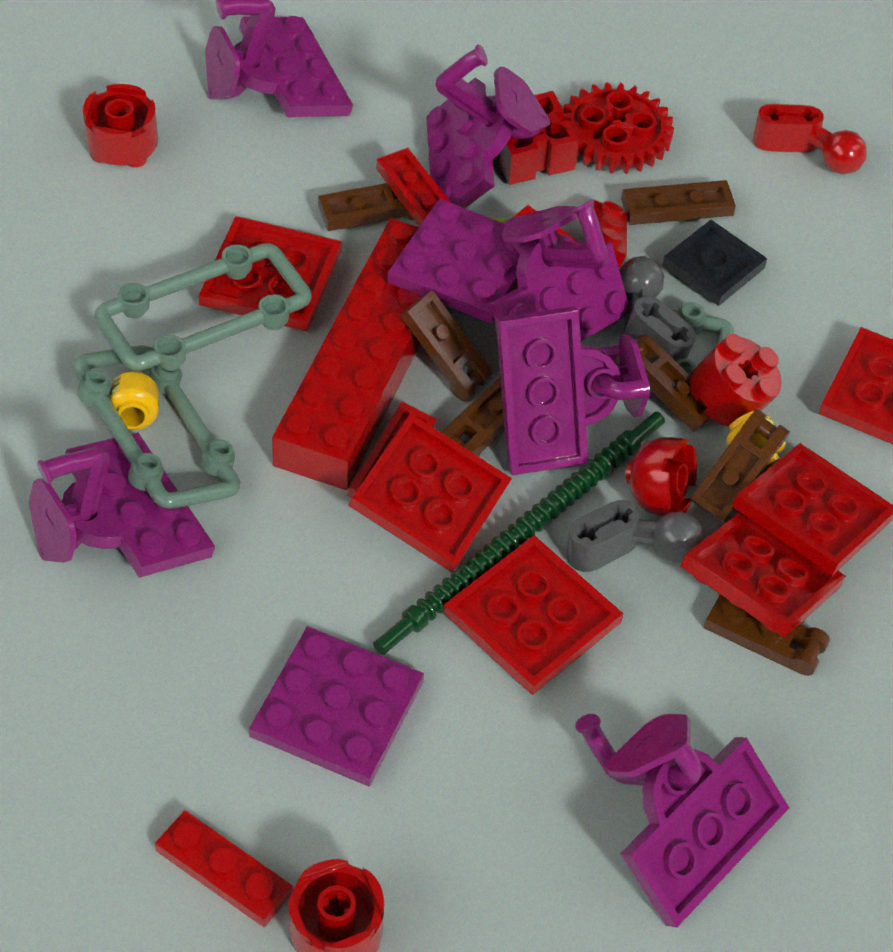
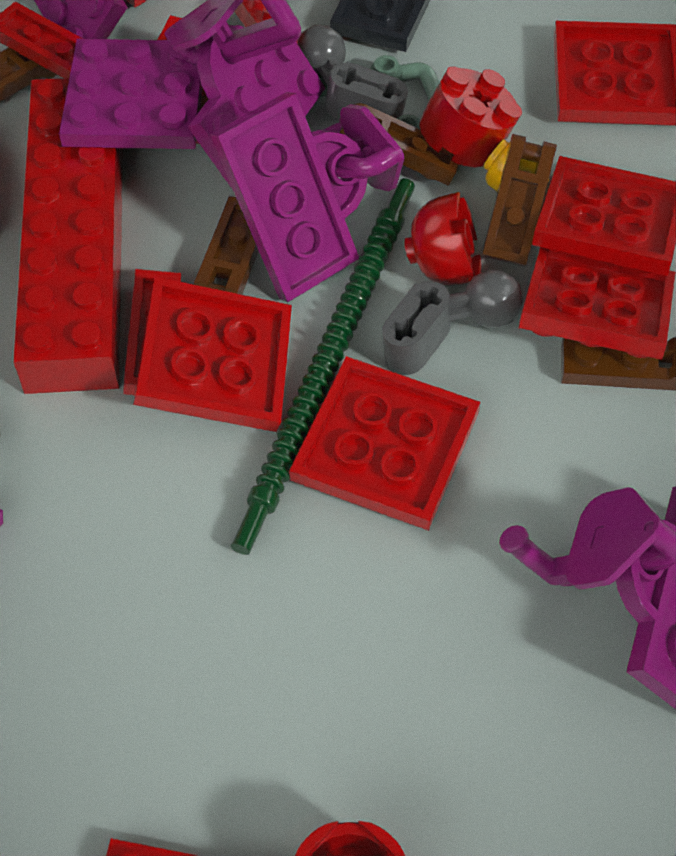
camera: 20 degrees left, 5 degrees up
(337, 706) = (224, 635): magenta plate -> none
(447, 345) = (155, 189): reddish brown plate -> none

